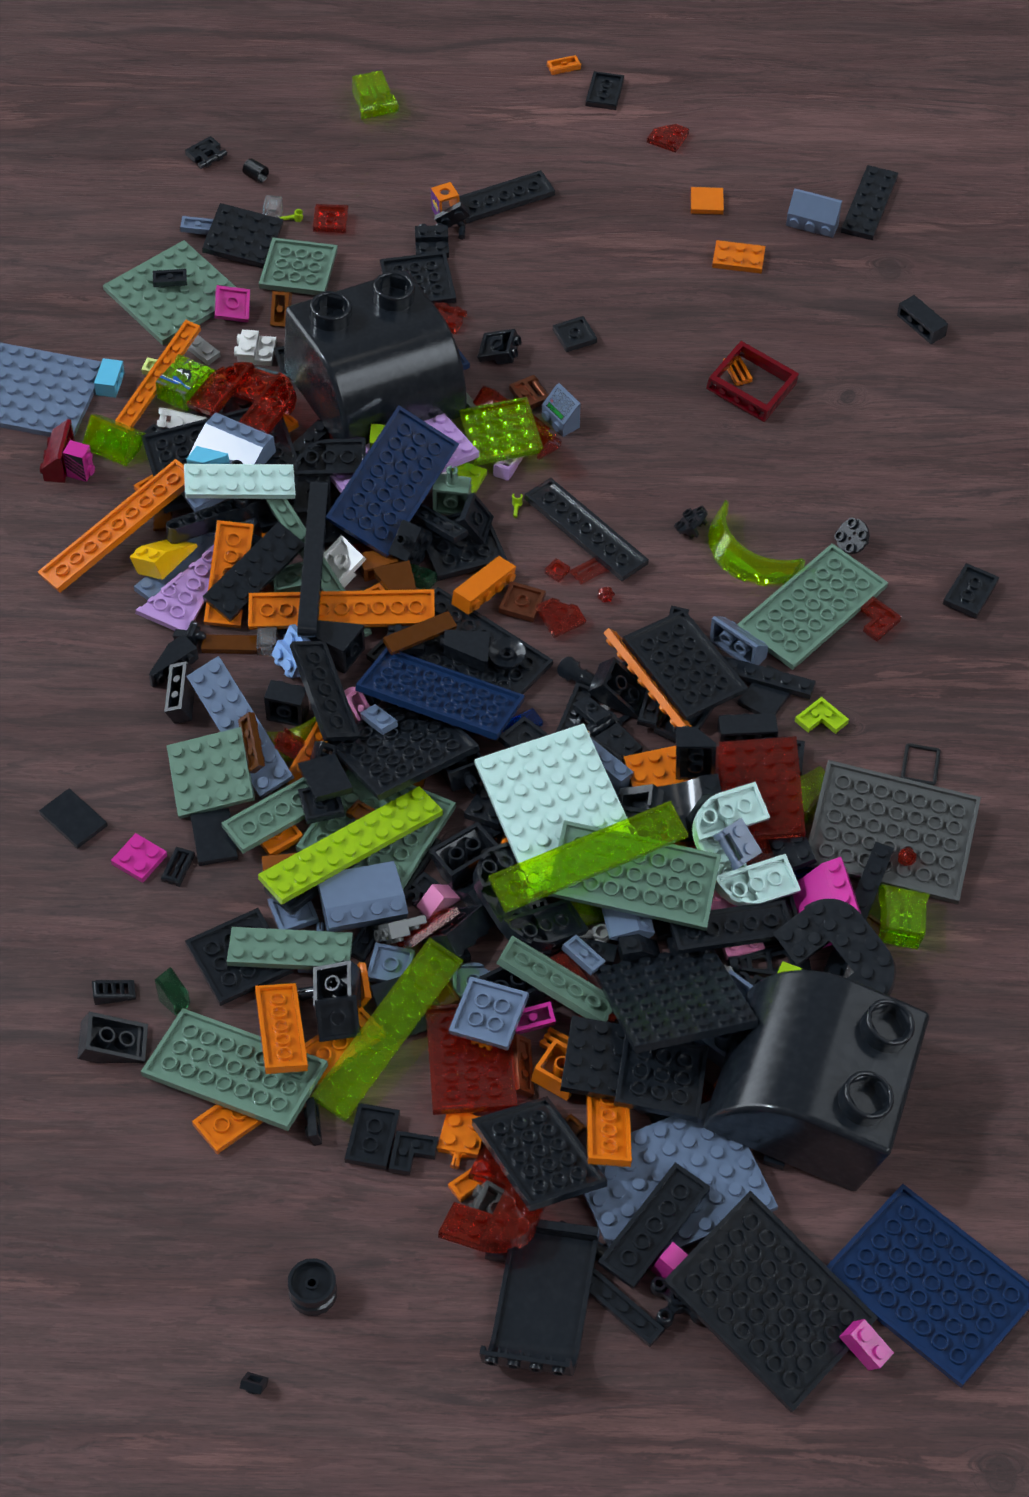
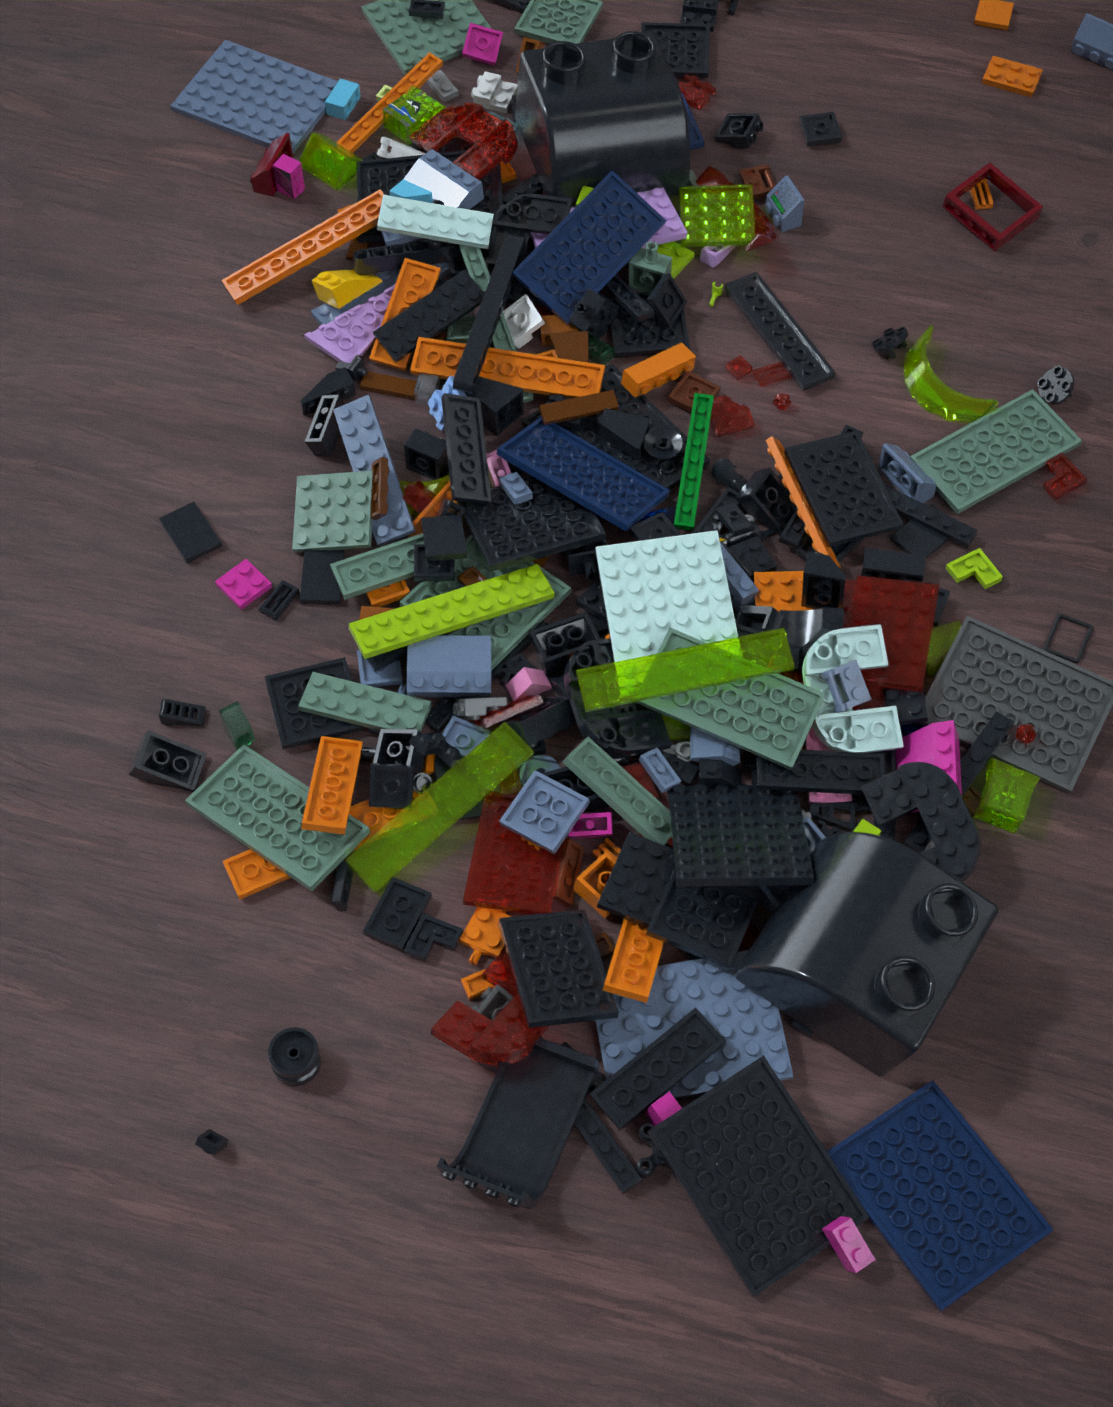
camera: 15 degrees right, 5 degrees up
(365, 1010) = (421, 782): none -> black plate
(369, 970) = (435, 744): none -> black plate
(540, 664) = (693, 462): none -> green plate

